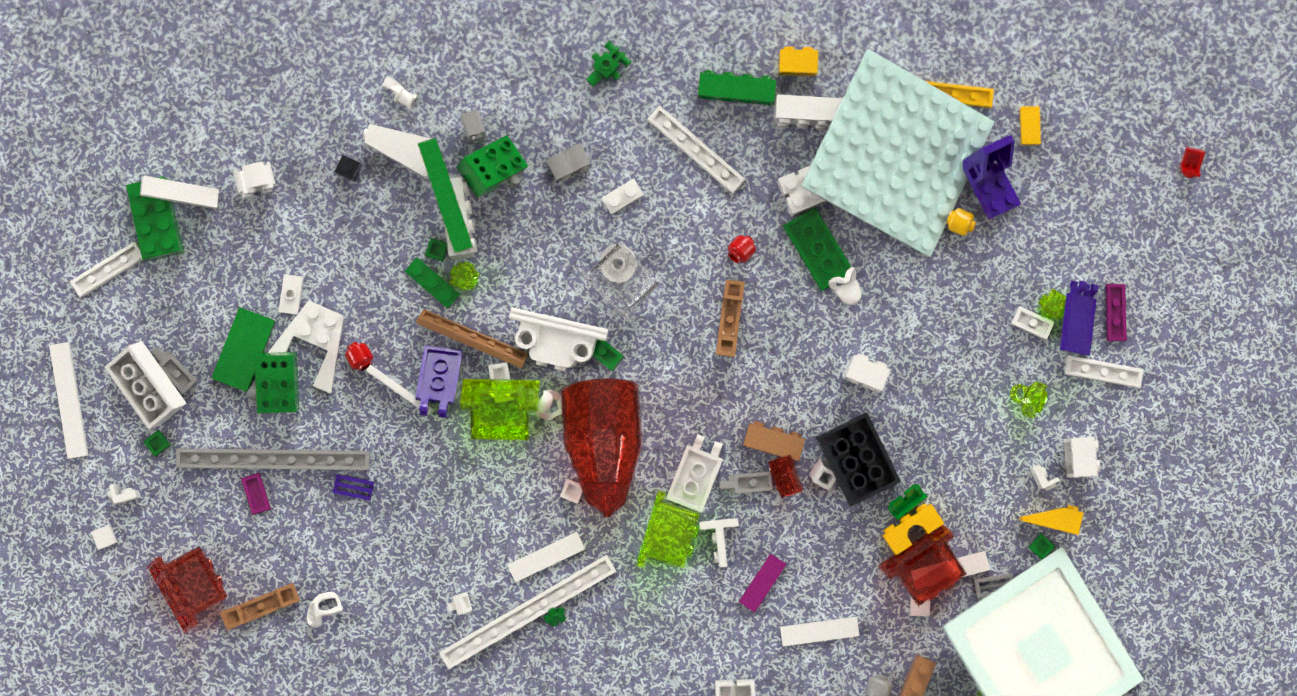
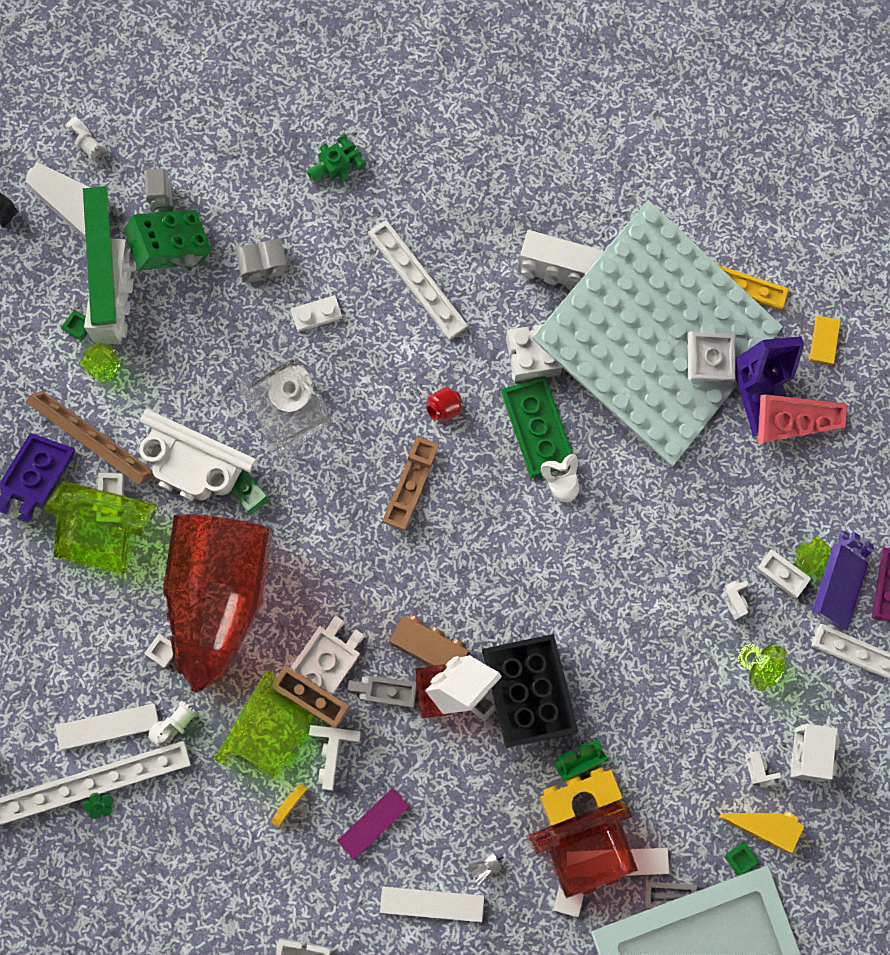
camera: 10 degrees right, 10 degrees down
(432, 282) = (61, 362): green plate -> none
(545, 403) = (153, 533): white piece -> none
(591, 549) = (171, 725): none -> white connector
(695, 501) = (311, 696): none -> medium nougat brick
(696, 583) = (288, 805): none -> yellow tile
(736, 88) = (481, 219): green brick -> none
(798, 62) = (562, 206): yellow brick -> none
(807, 468) = (461, 684): none -> white slope
(856, 592) = (486, 865): none -> flat silver piece
(870, 374) = (564, 583): white piece -> none
(943, 163) = (711, 356): none -> white tile
(961, 222) = (719, 432): yellow head -> none
(999, 354) = (734, 601): none -> white bracket
(1017, 197) = (793, 417): none -> coral wing

